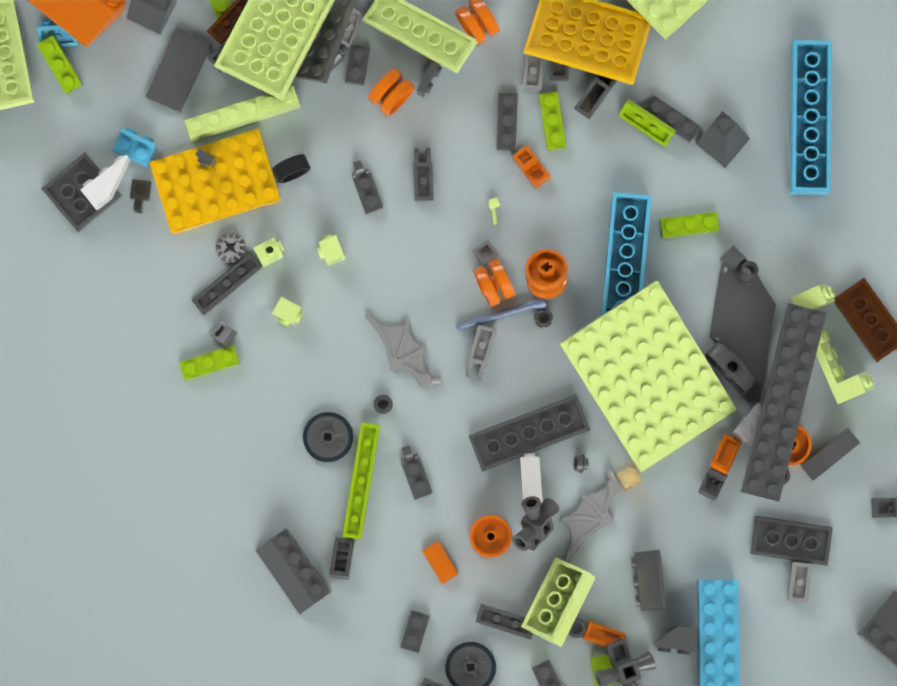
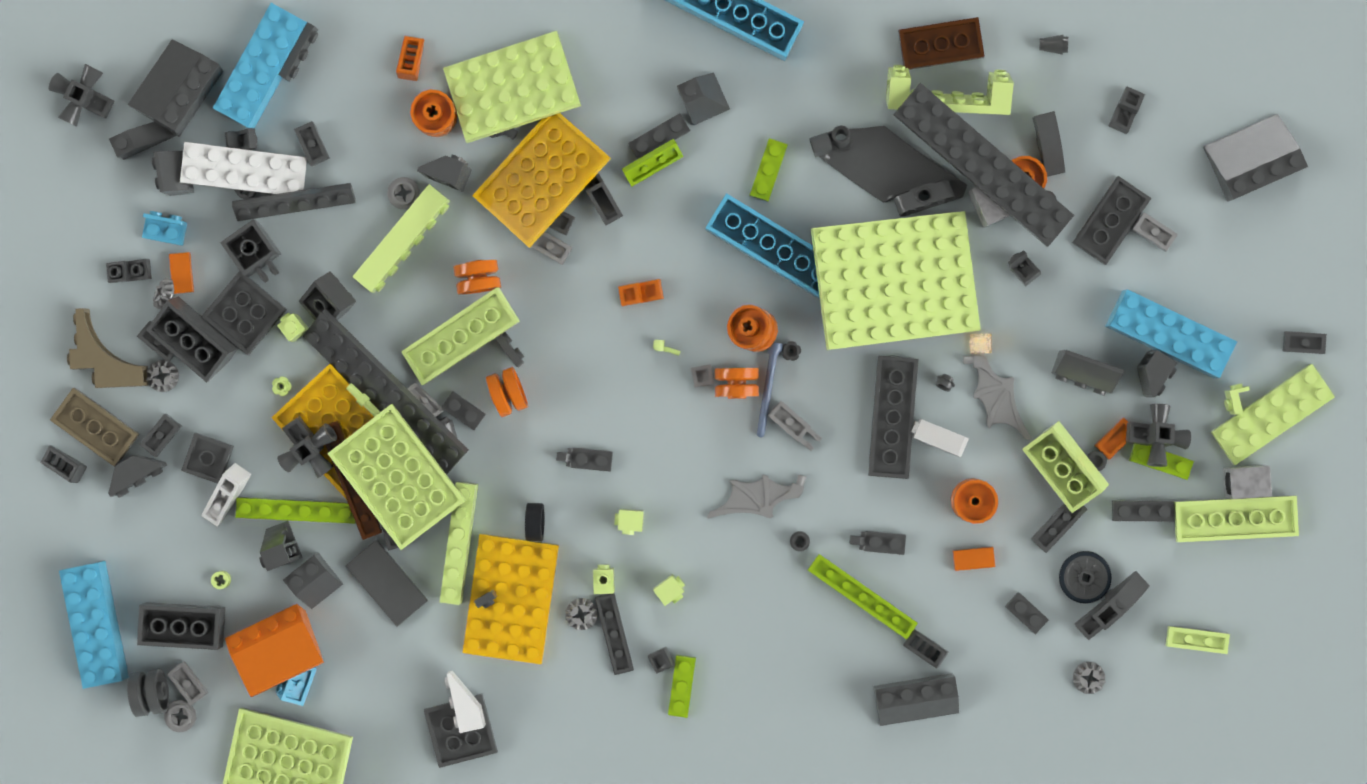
camera: 75 degrees left, 5 degrees up
(59, 64) = (327, 694): lime plate -> none
(136, 148) = (441, 660): medium azure bracket -> none
(140, 192) = (487, 674): clear smoke plate -> none
(328, 450) = (818, 613): dark grey wheel -> none
(423, 177) = (602, 400): dark grey hinge -> none
(507, 121) = (586, 294): dark grey plate -> none
(536, 523) = (984, 453): dark grey brick -> none
(552, 121) = (606, 251): lime plate -> none
(725, 454) = (1002, 242): orange tile -> none

